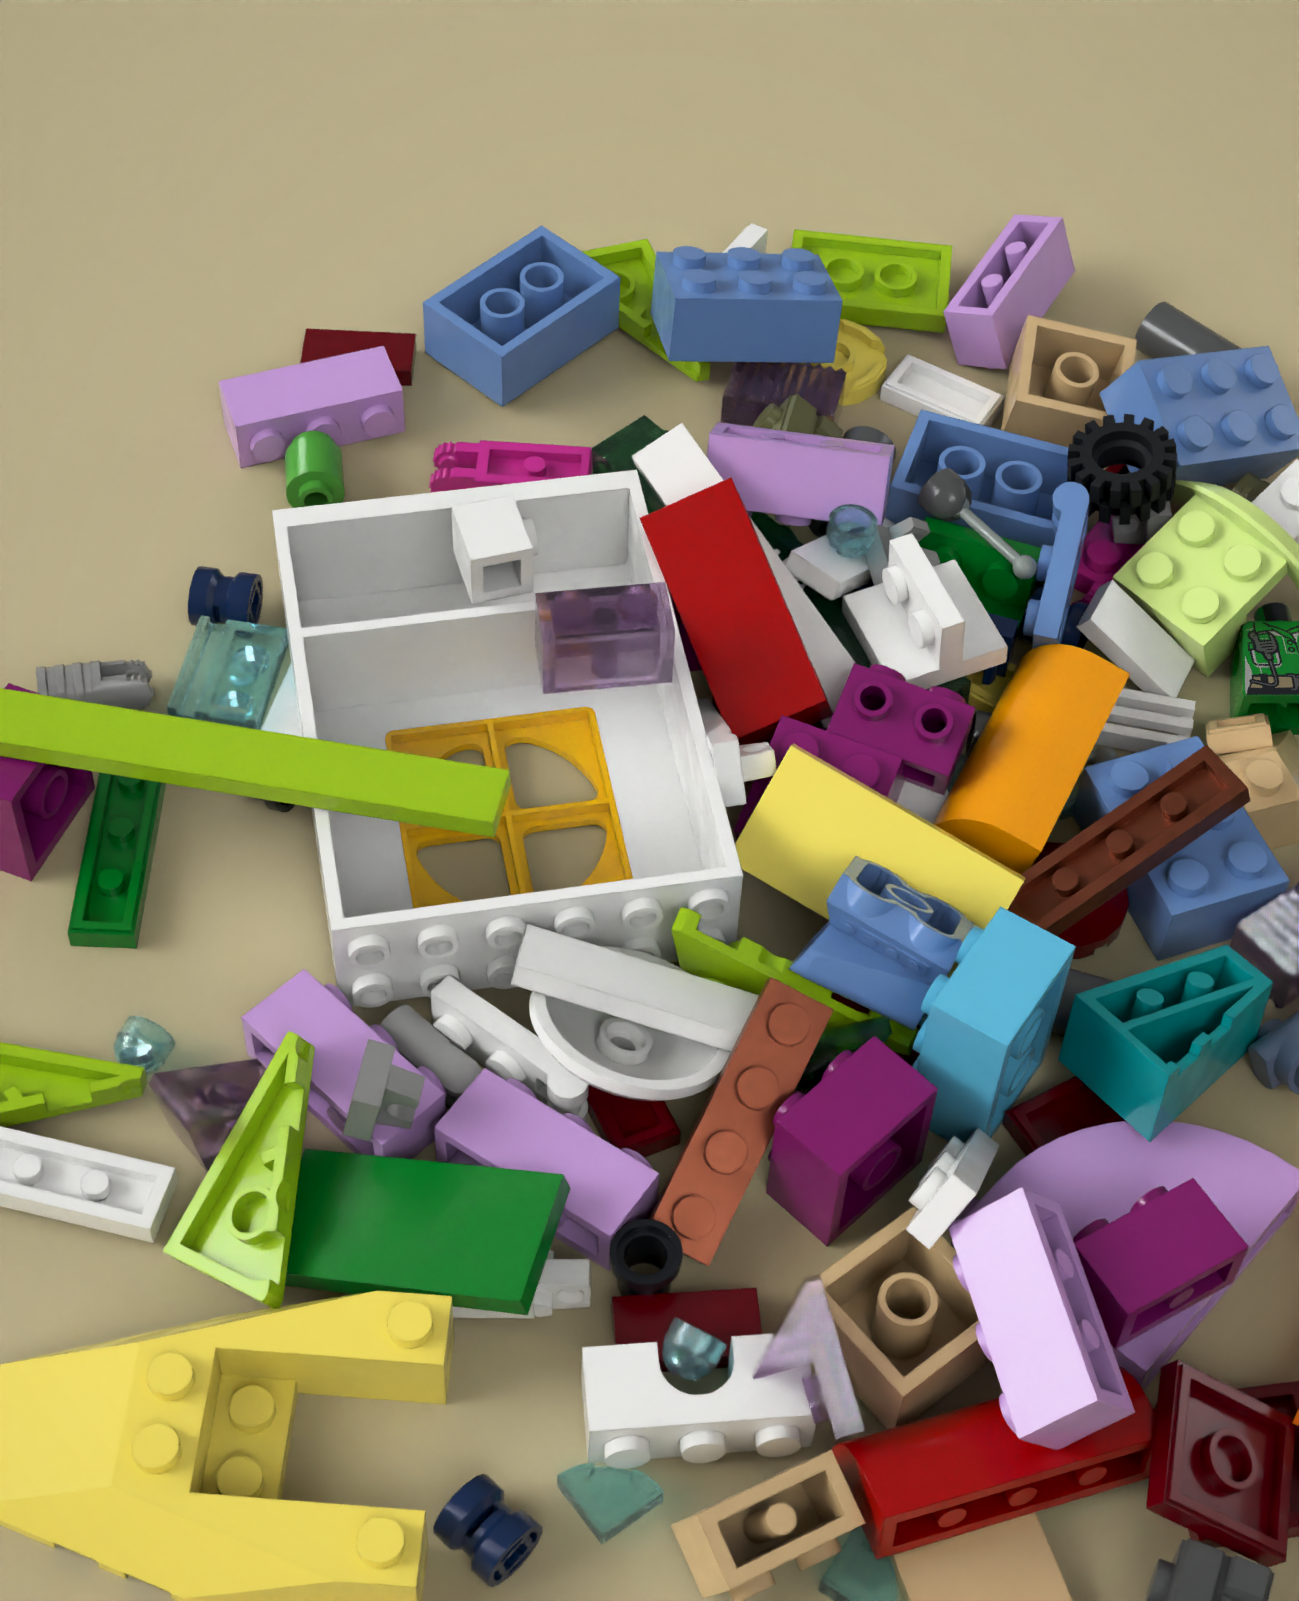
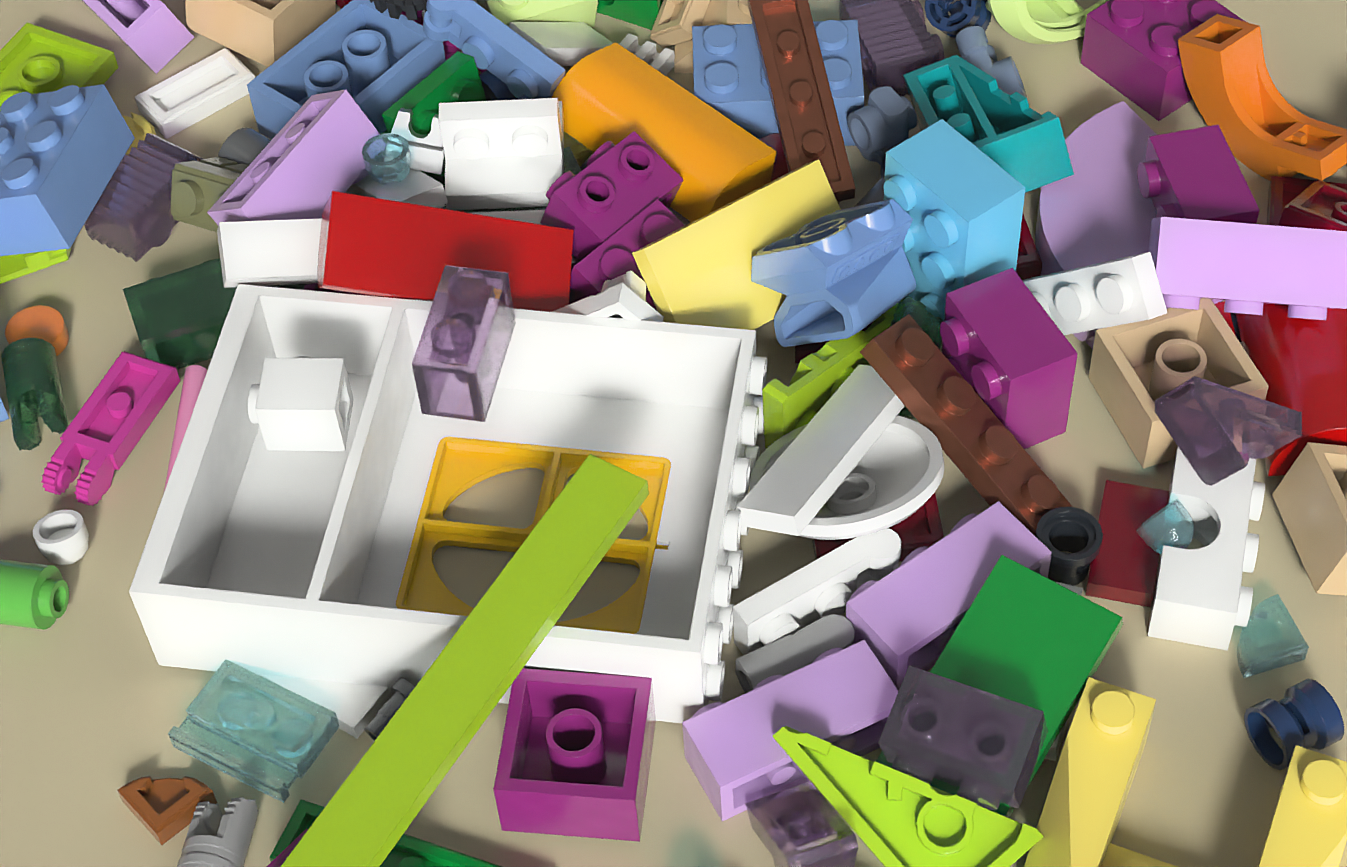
camera: 65 degrees left, 0 degrees up
(149, 642) = (165, 803): none -> dark orange tile
(224, 596) = (152, 709): dark blue wheel -> none
(254, 902) = (576, 754): none -> magenta brick
(343, 1199) = (963, 738): none -> clear purple brick
(382, 478) = (62, 537): none -> white hinge
(382, 1093) = (866, 676): light grey tile -> none
(529, 408) = (33, 390): none -> clear green hinge
(600, 391) = (40, 323): none -> orange tile
(949, 499) = (381, 87): hinge -> none
(1148, 941) = (881, 124): none -> sand blue plate

